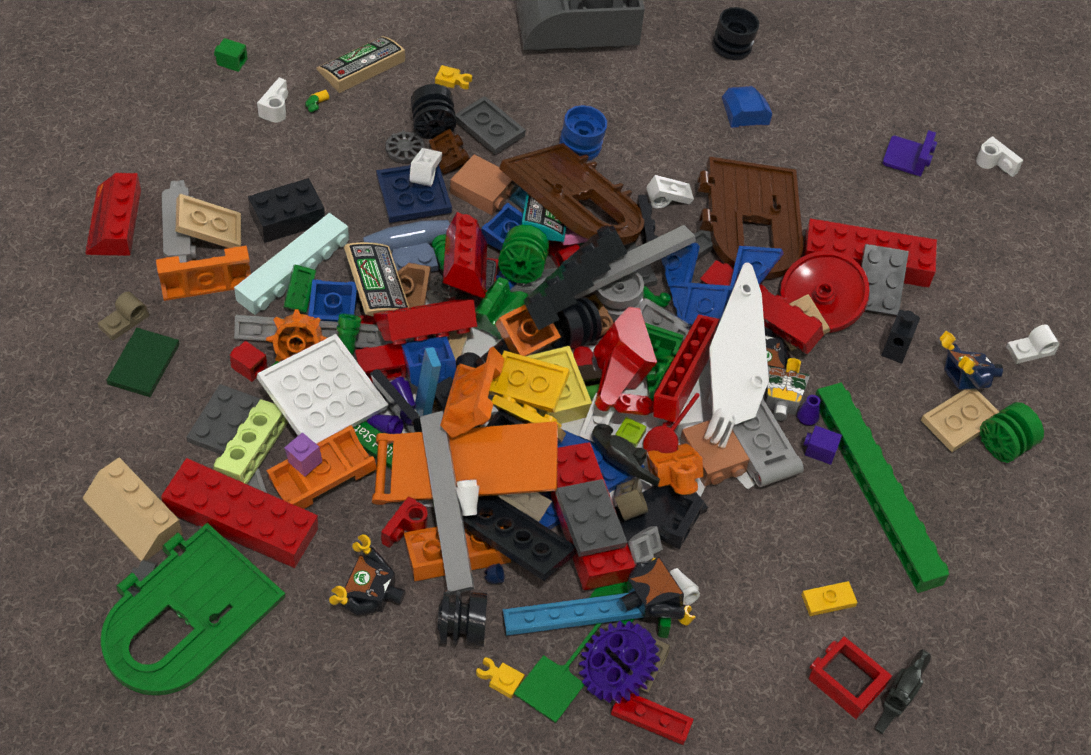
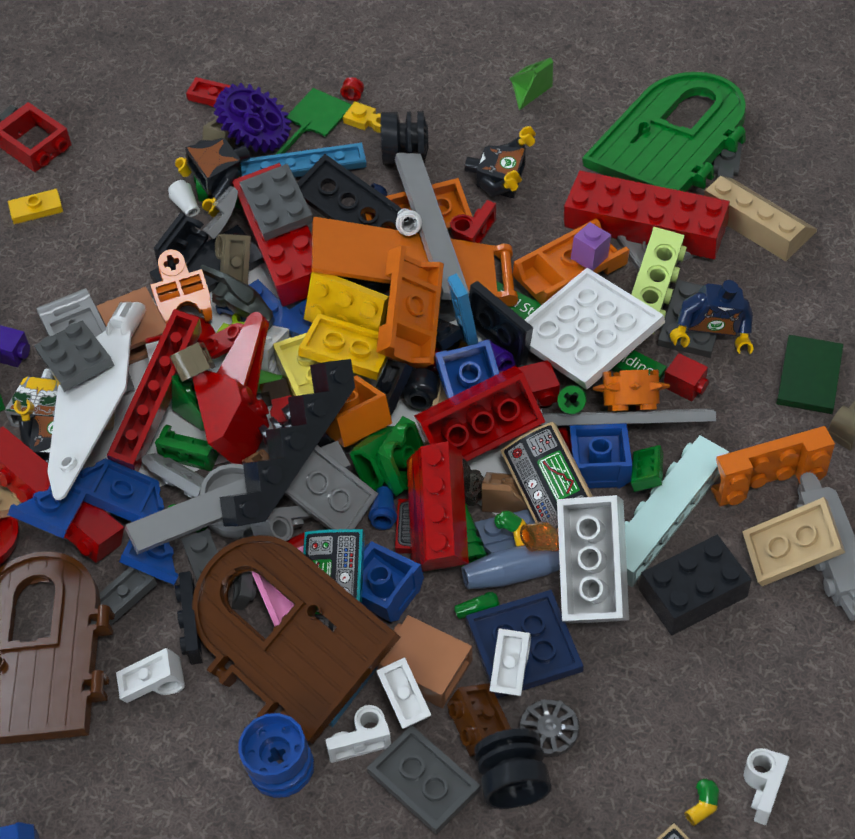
camera: 175 degrees left, 0 degrees up
(210, 391) = (718, 311): none -> dark blue torso
(318, 702) = (532, 81): none -> bright green slope
(357, 210) = (592, 559): none -> white brick
(388, 233) = (540, 537): none -> clear orange piece
(411, 249) = (512, 523): none -> green arm
(441, 214) = (477, 604): none -> green arm
(495, 152) = (404, 693): none -> white plate
(513, 710) = (356, 85): none -> red bush
(523, 254) = (360, 508): green wheel -> none
(528, 143) = (363, 740): none -> white plate
(651, 368) = (192, 361): none -> dark tan plate
(759, 395) = (73, 355): none -> dark grey plate
(810, 411) = (11, 377): dark purple cone -> none

